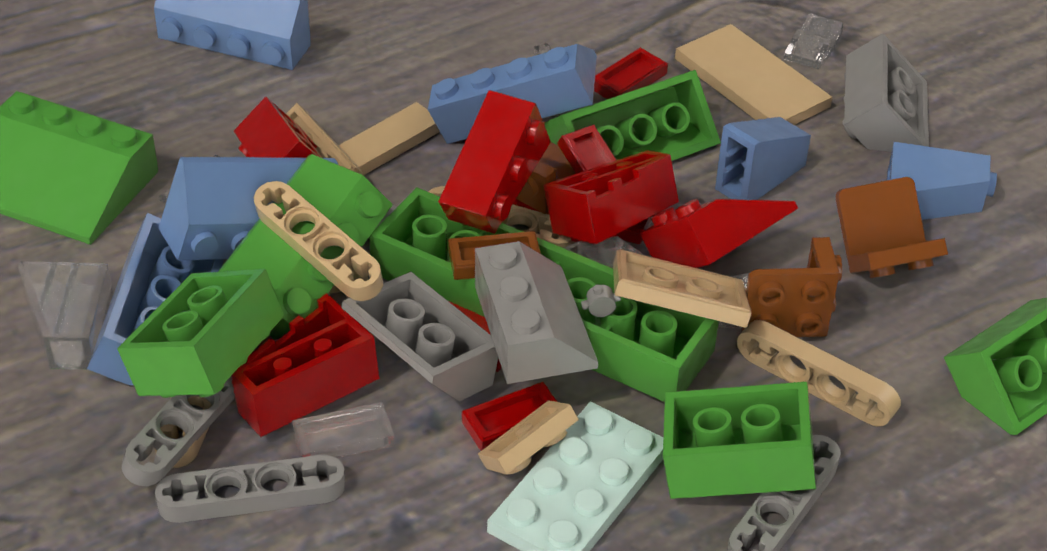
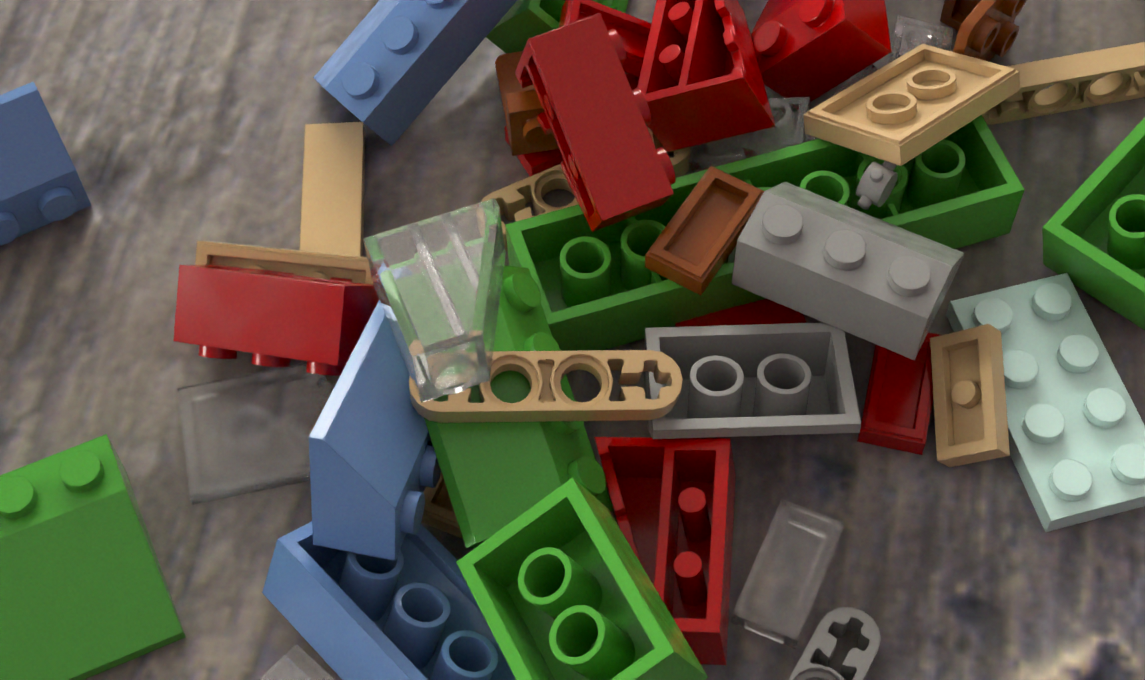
camera: 45 degrees left, 15 degrees up
(314, 160) = (442, 294): none -> clear slope

